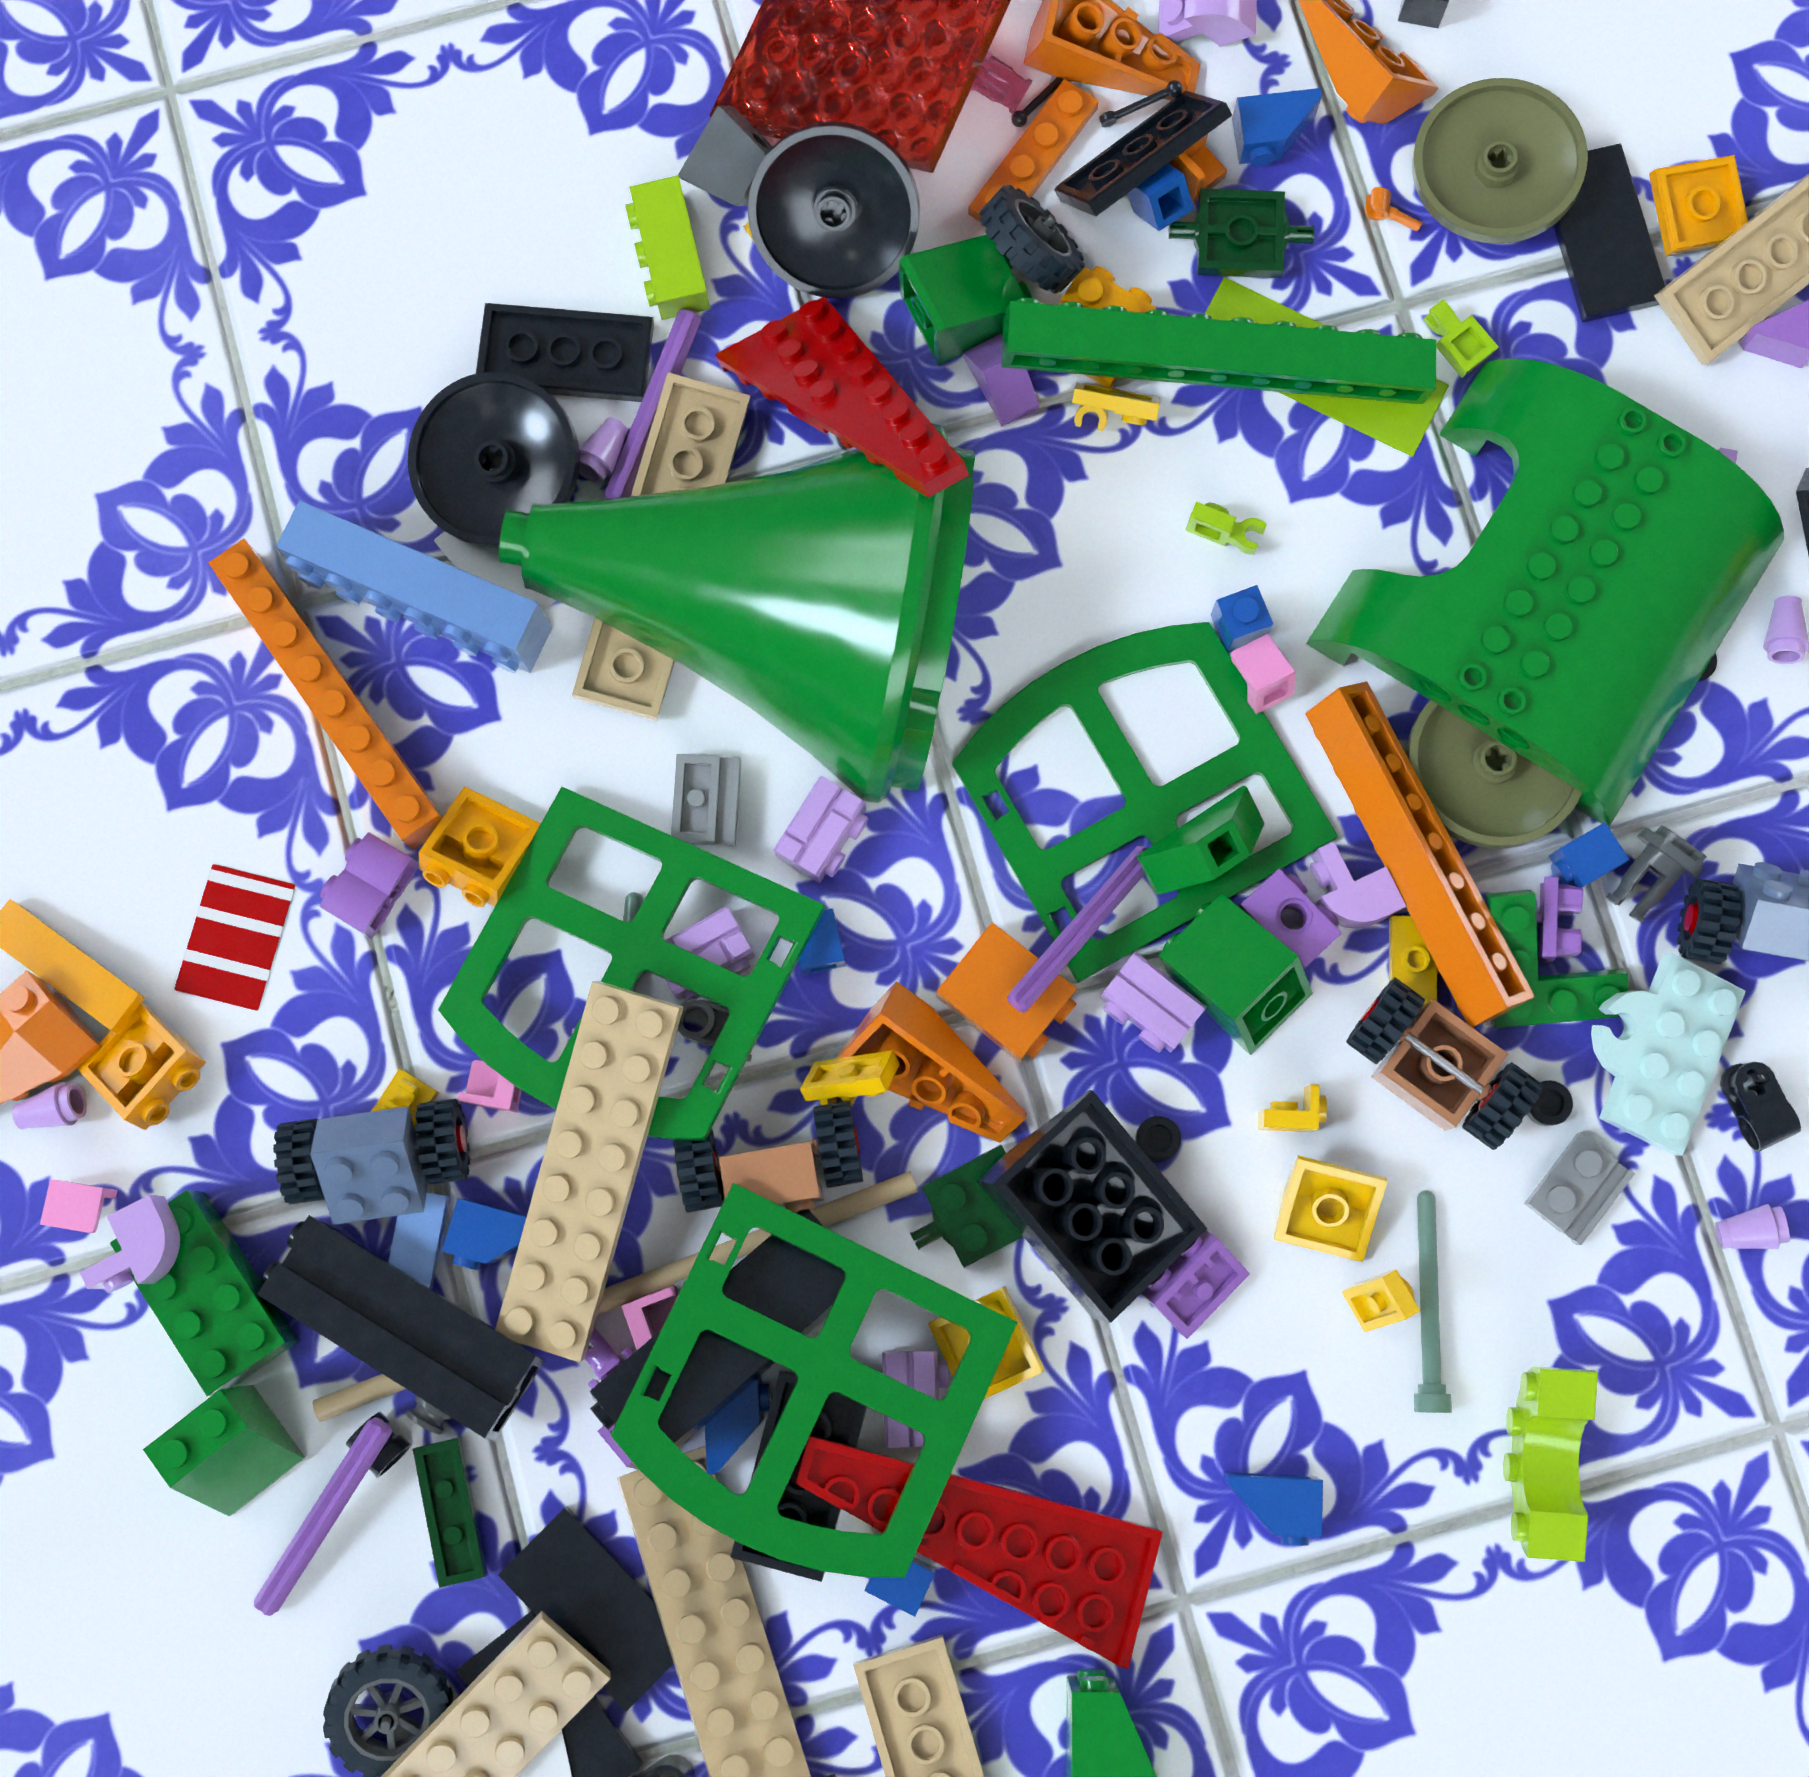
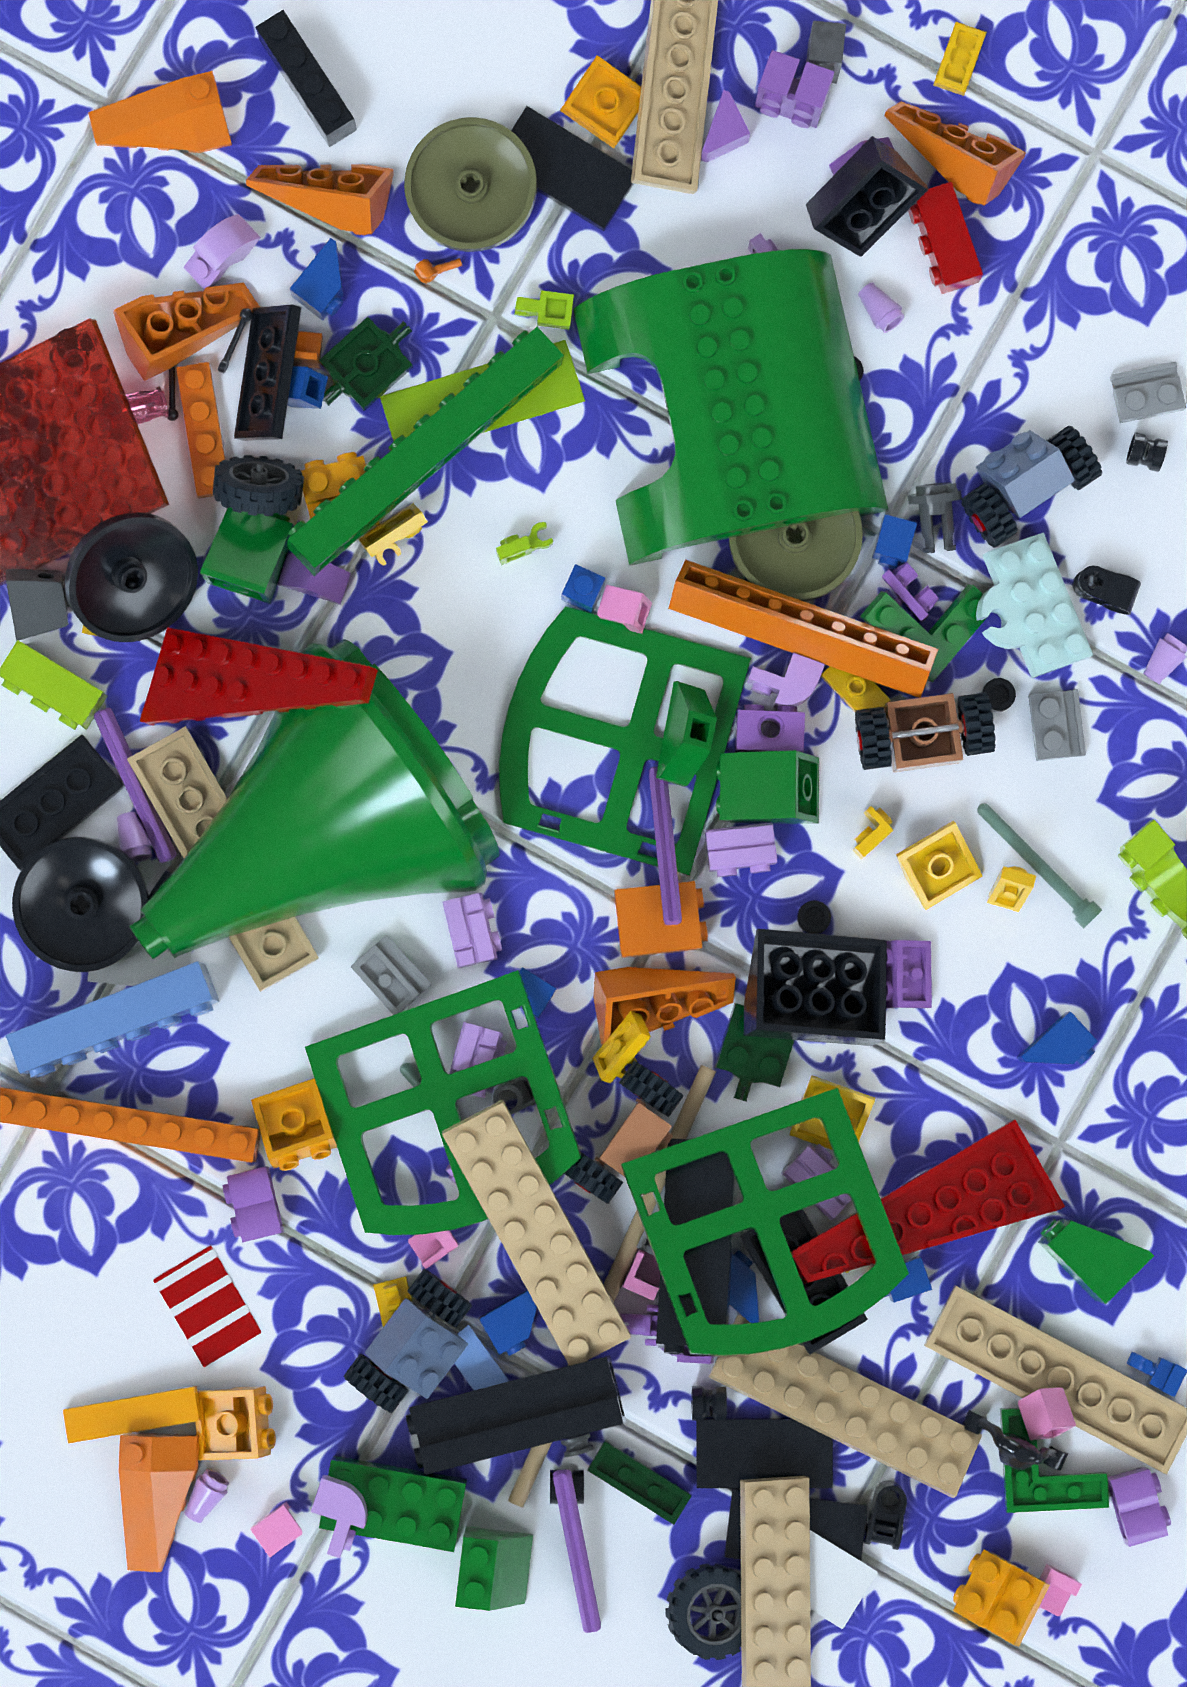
camera: 55 degrees left, 5 degrees up
(586, 1493) = (701, 1406): none -> black wheel

